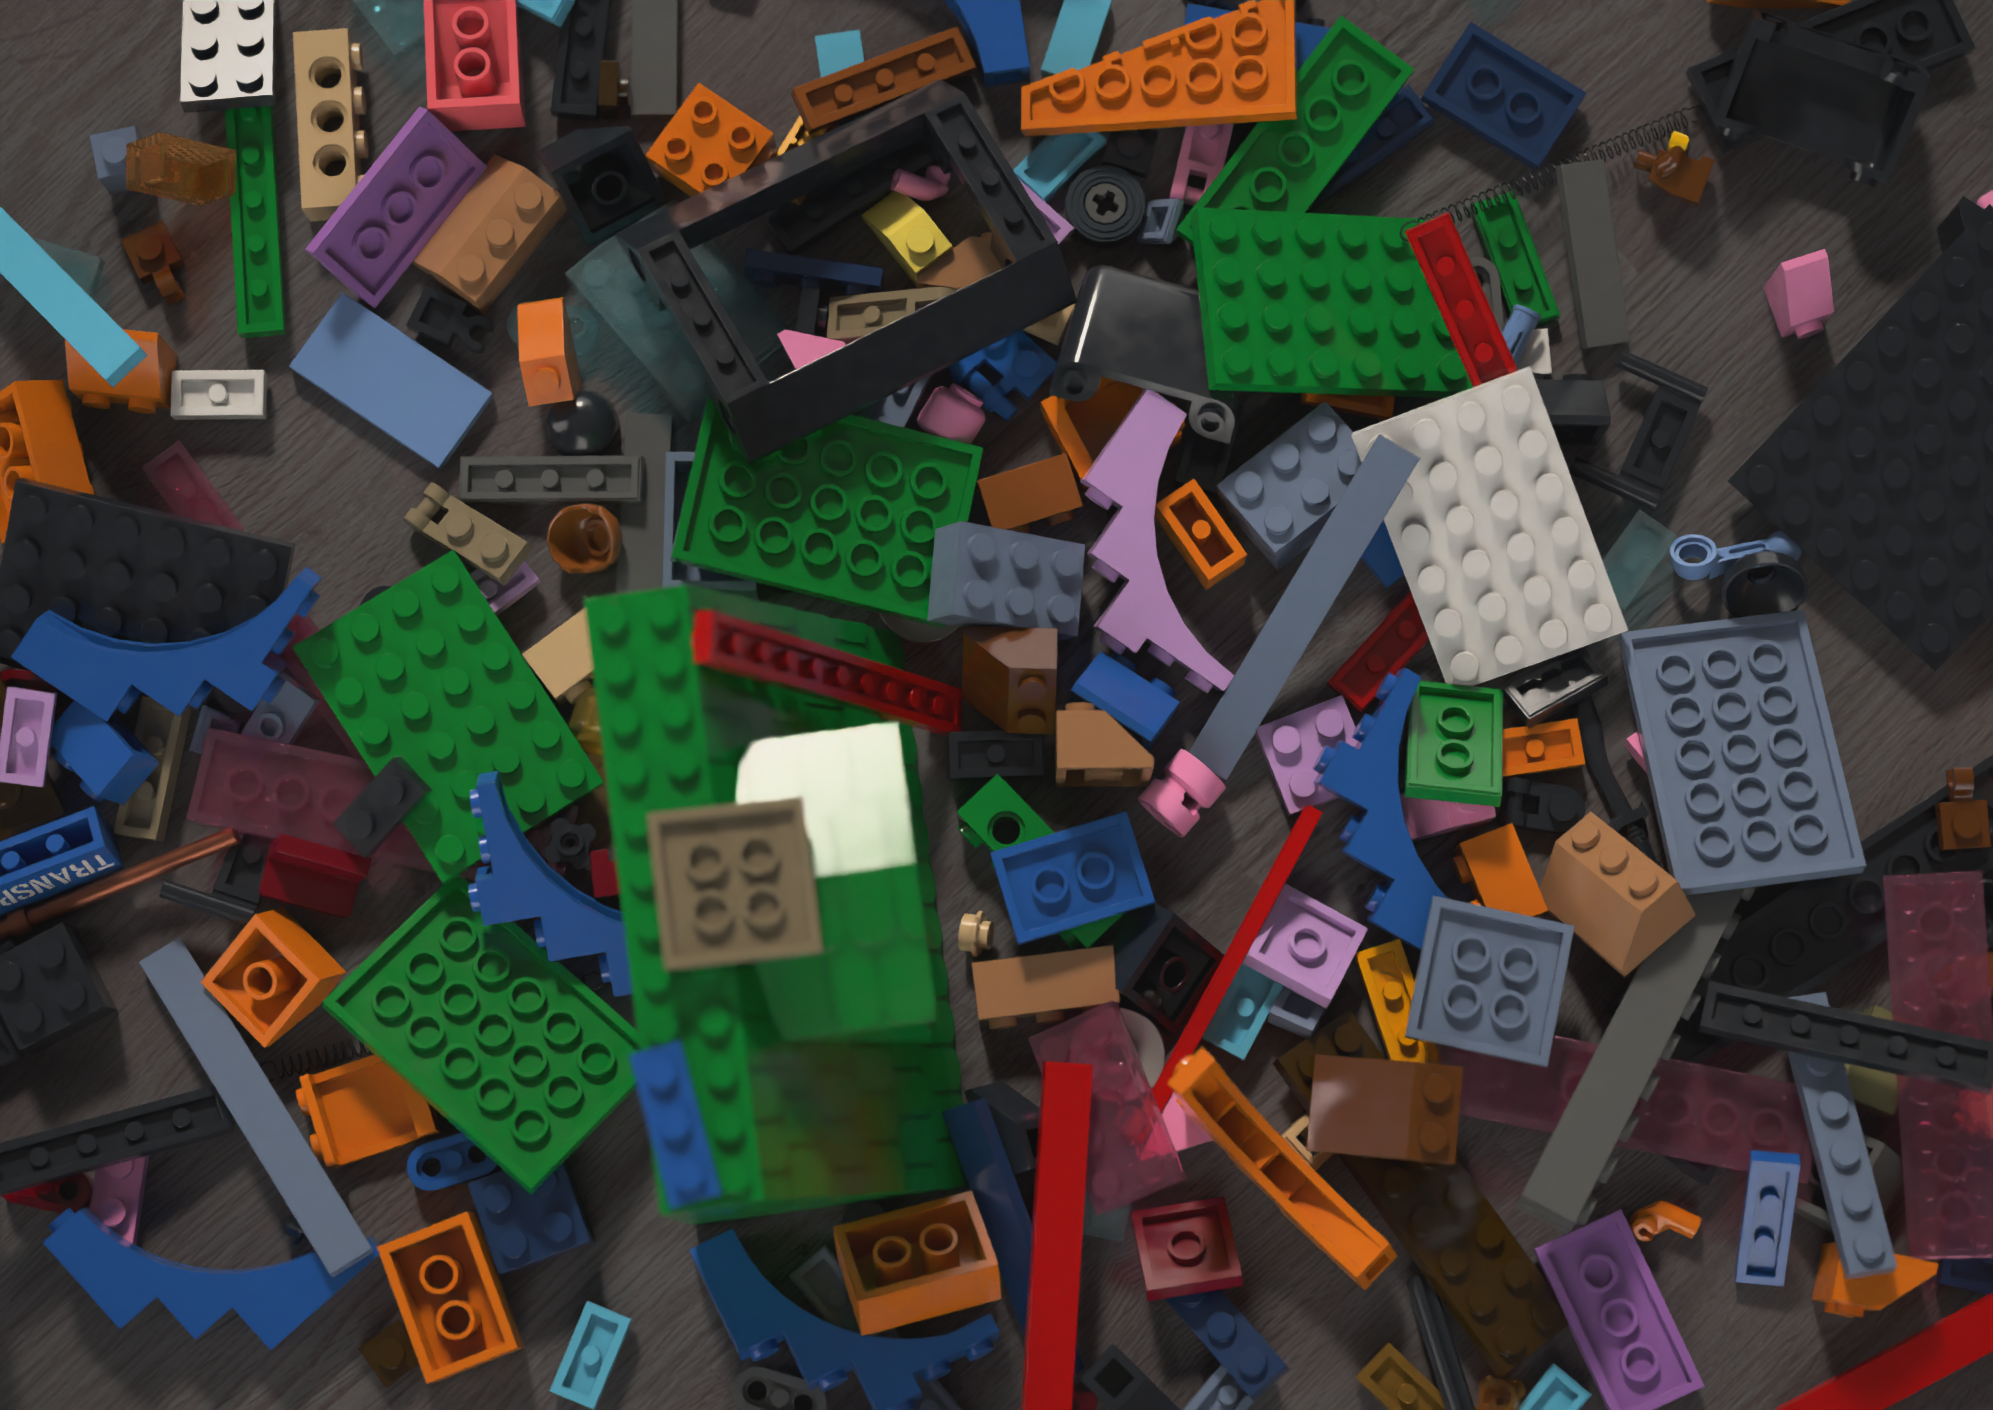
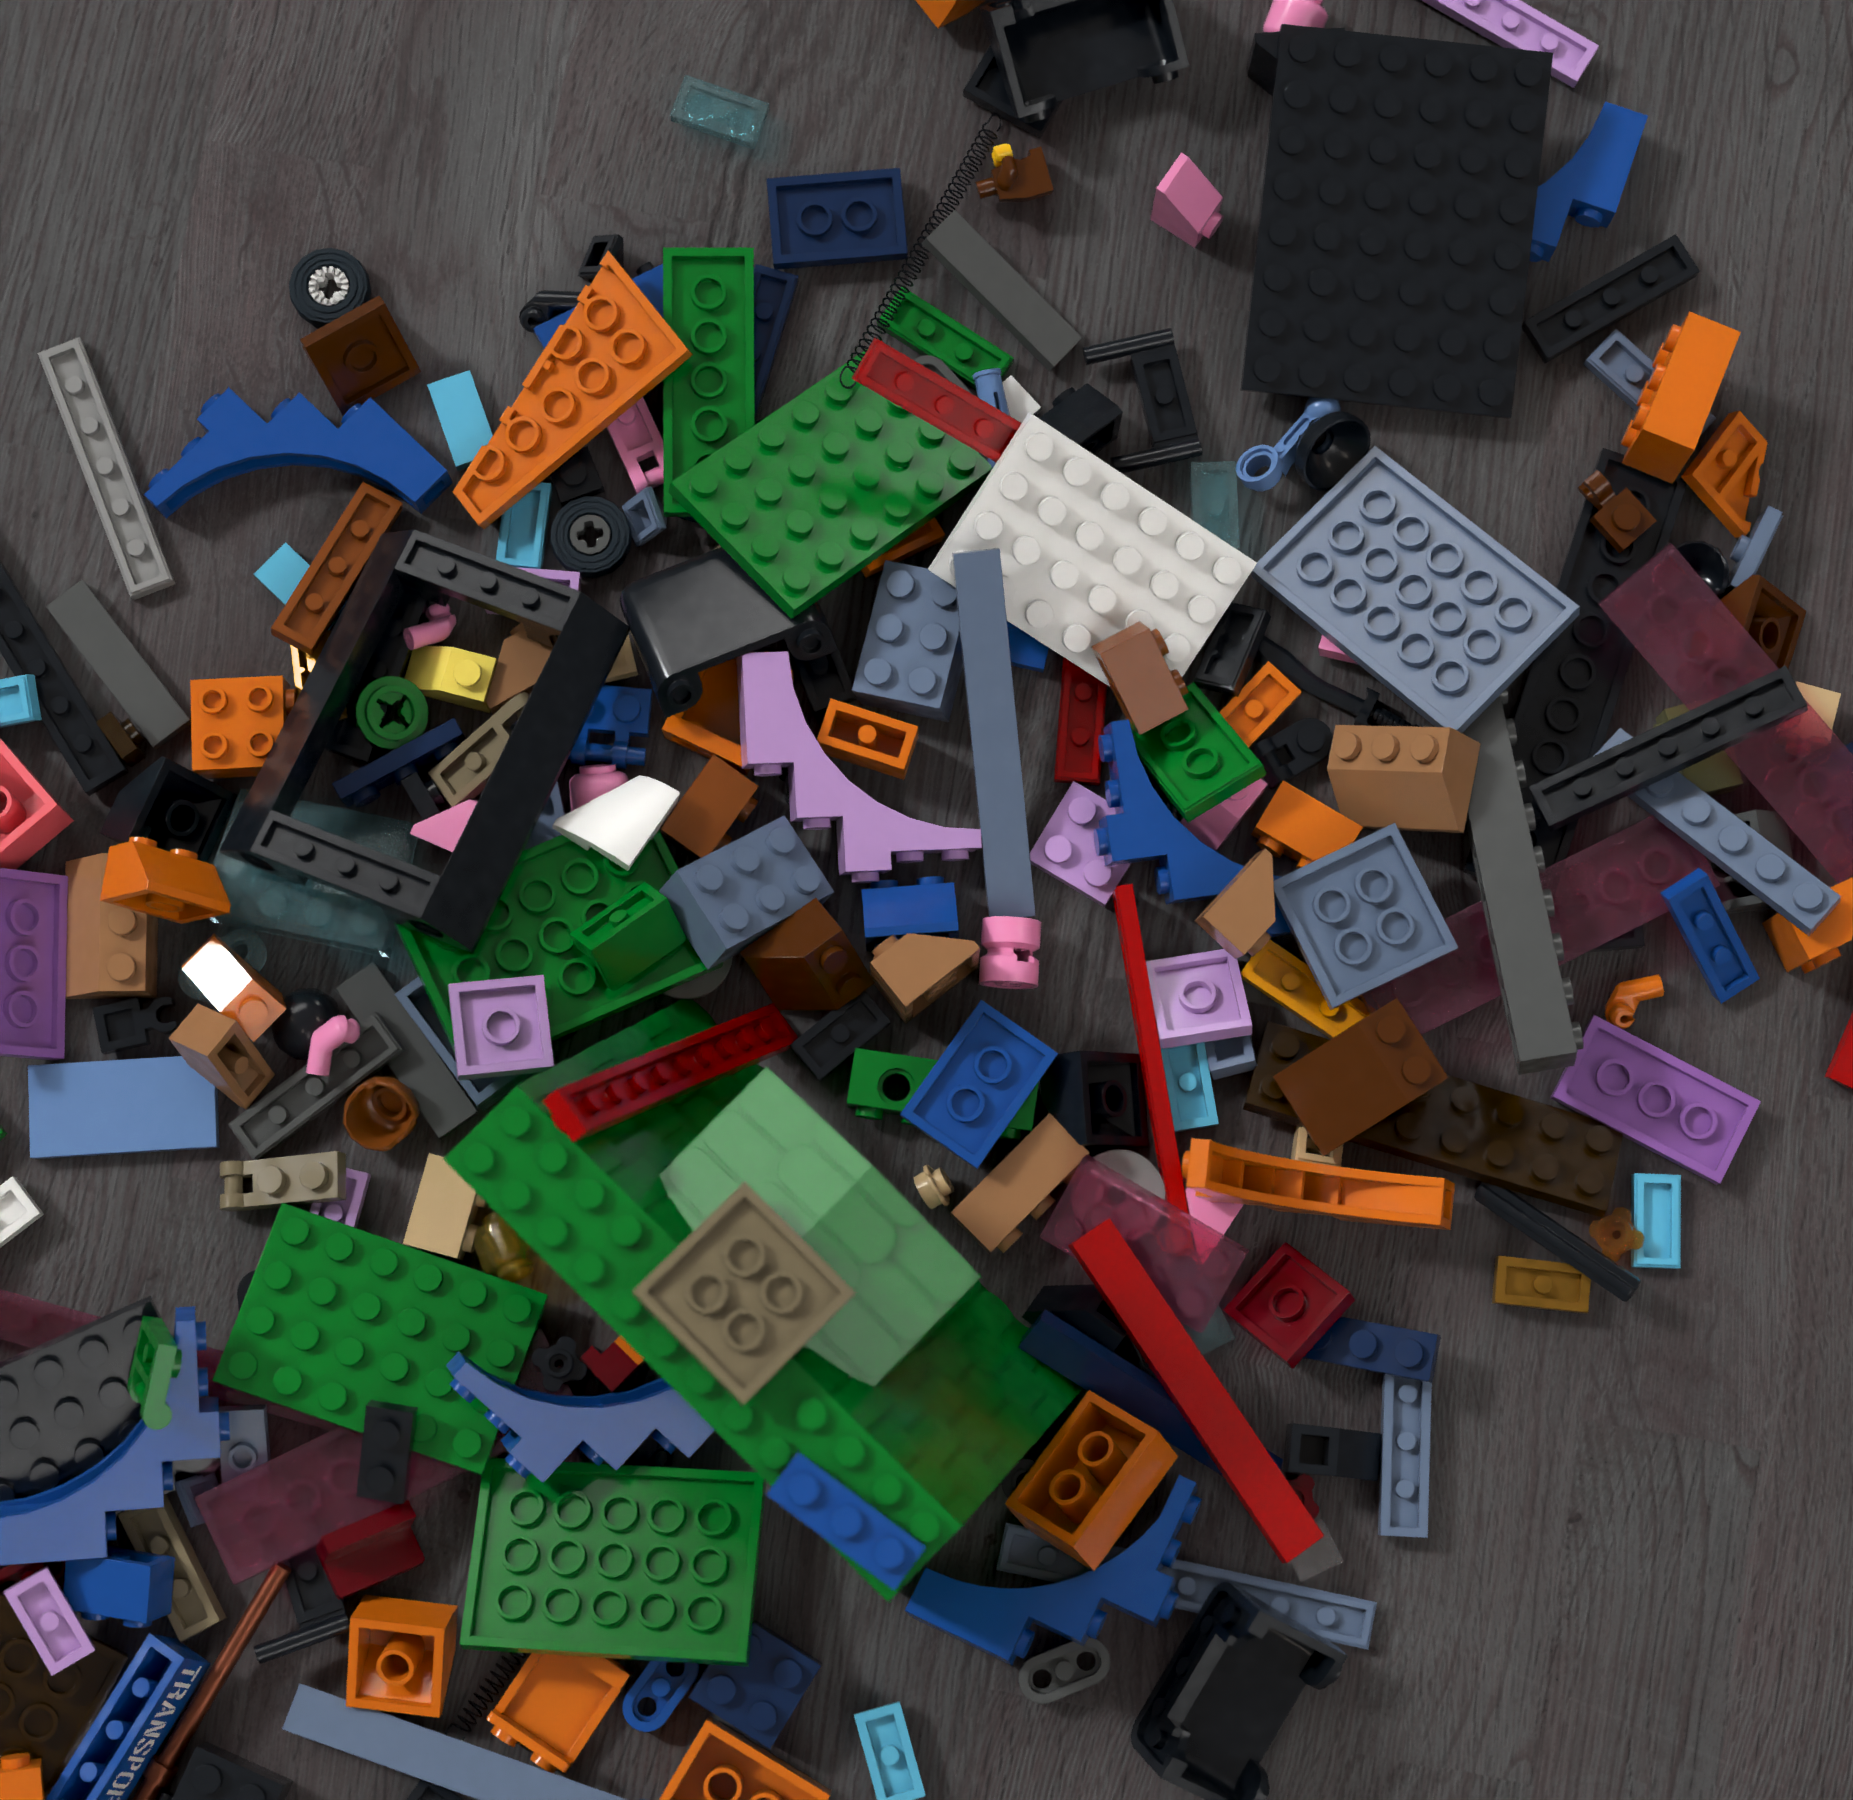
camera: 40 degrees left, 0 degrees up
(253, 598) = (153, 1366): none -> green plate
(497, 398) = (222, 1054): none -> medium nougat slope
(553, 225) = (162, 882): none -> orange slope
(587, 447) = (328, 1038): none -> bright pink arm
(725, 539) = (500, 1027): none -> lavender plate
(854, 239) = (412, 712): none -> green gear
(885, 546) = (630, 935): none -> green panel
(951, 449) = (621, 819): none -> white slope
(1395, 901) = (1243, 909): none -> medium nougat slope
(1459, 651) = (1141, 677): none -> dark orange brick

